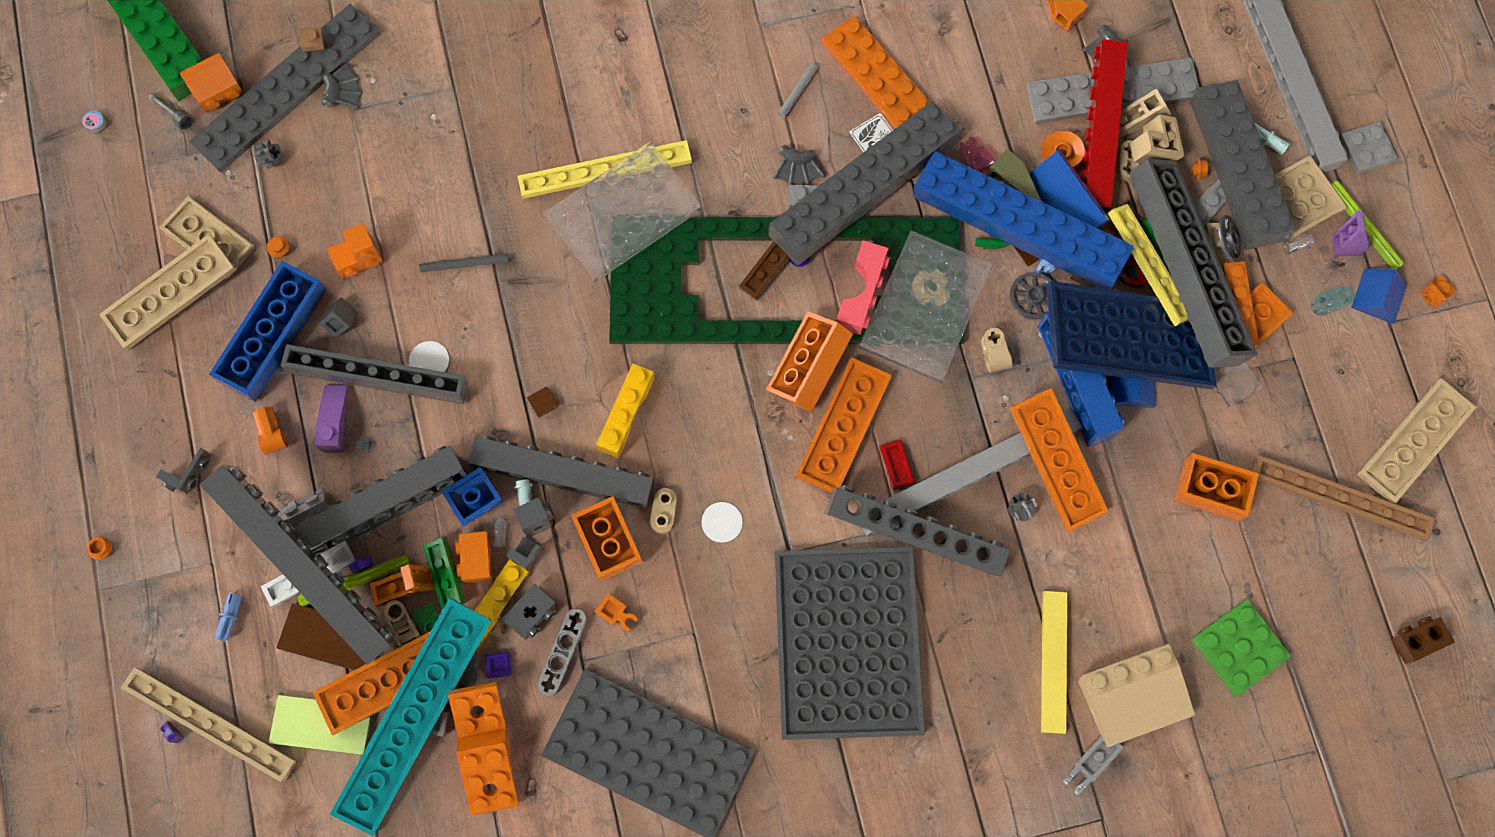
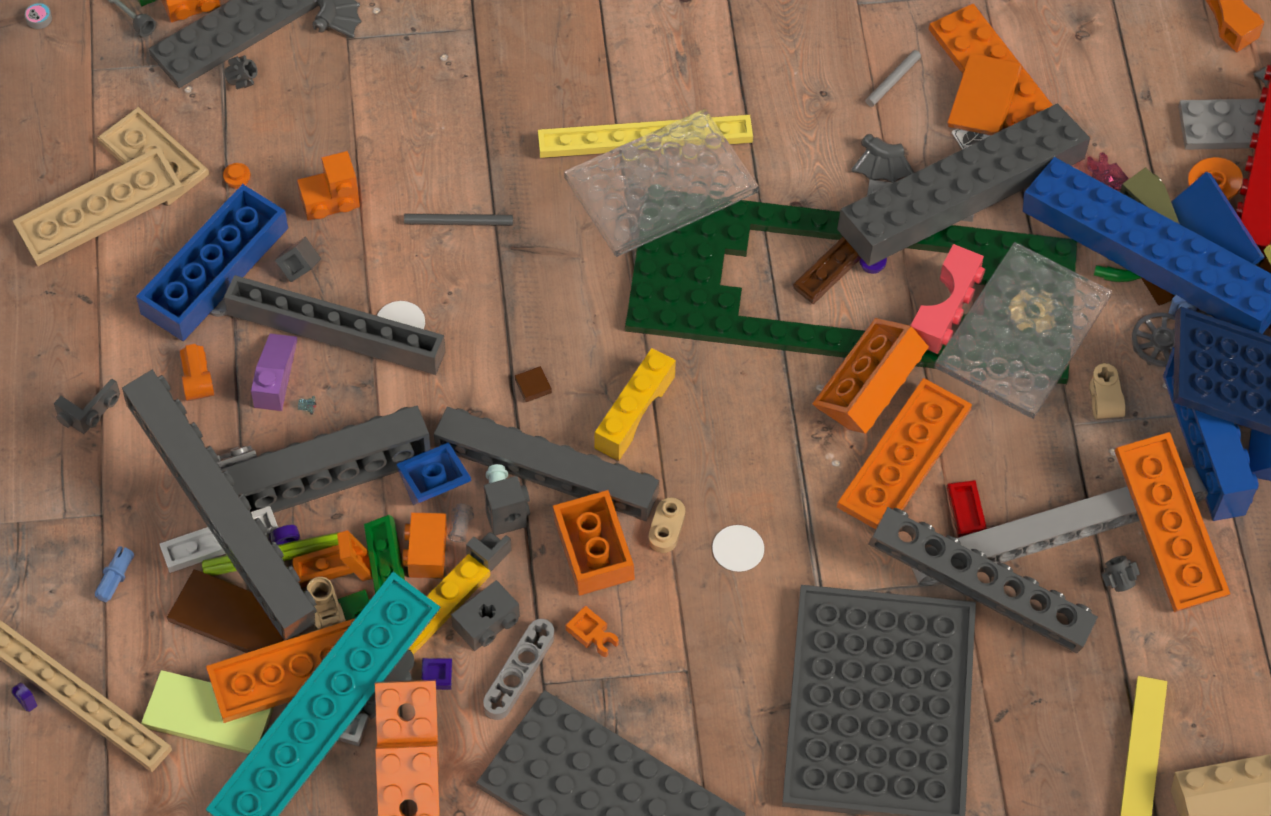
camera: 10 degrees right, 15 degrees down
(872, 98) = (984, 94): none -> orange tile

